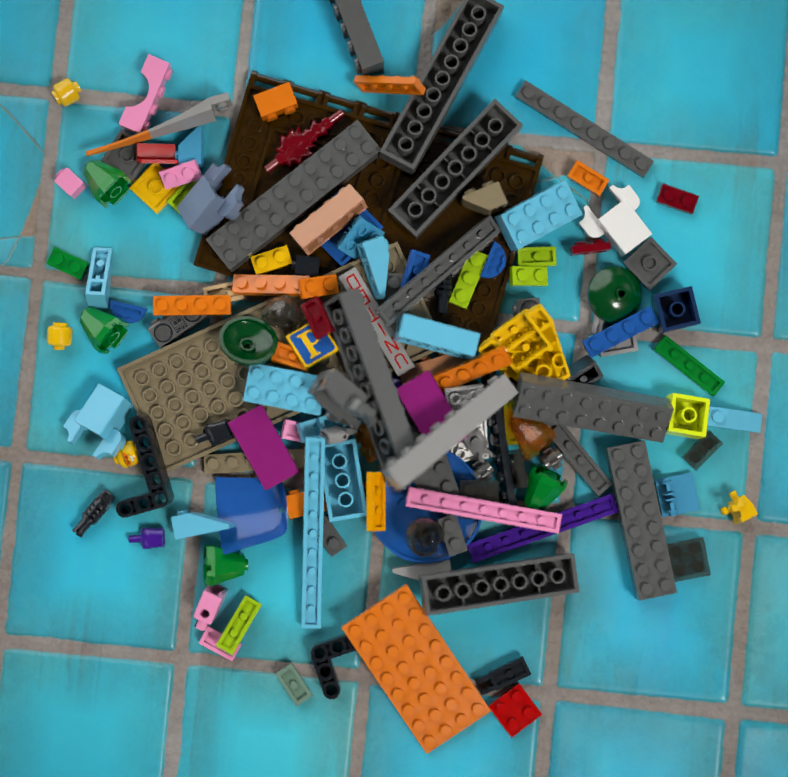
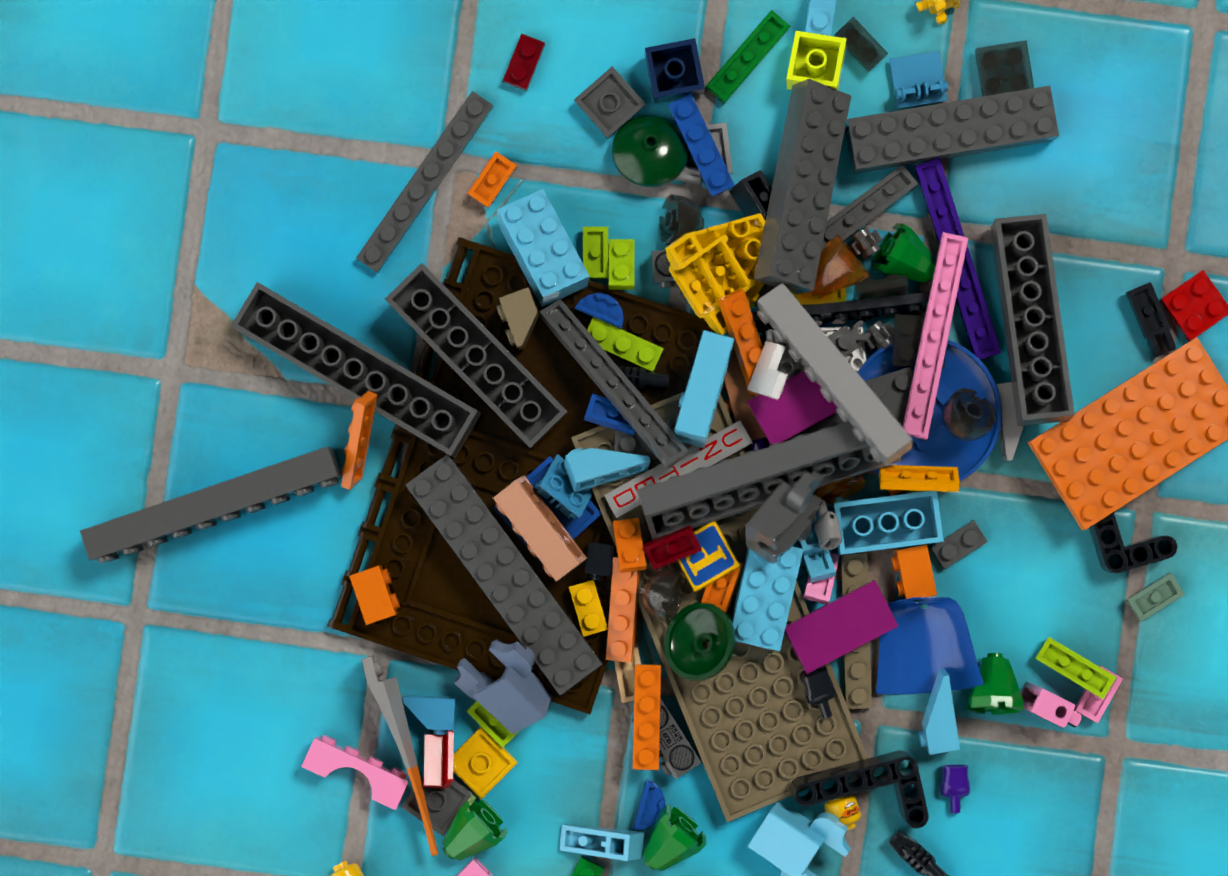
camera: 90 degrees left, 0 degrees up
(180, 174) = (467, 727): bright pink plate -> none
(297, 145) = (433, 567): dark red piece -> none
(313, 532) = (956, 563): medium azure plate -> none
(445, 382) = (766, 378): none -> white tile
(453, 536) = (968, 376): dark grey plate -> none
(565, 319) = (680, 218): none -> clear smoke cylinder
(582, 248) = (584, 169): dark red plate -> none
(620, 224) = (557, 138): white piece -> none

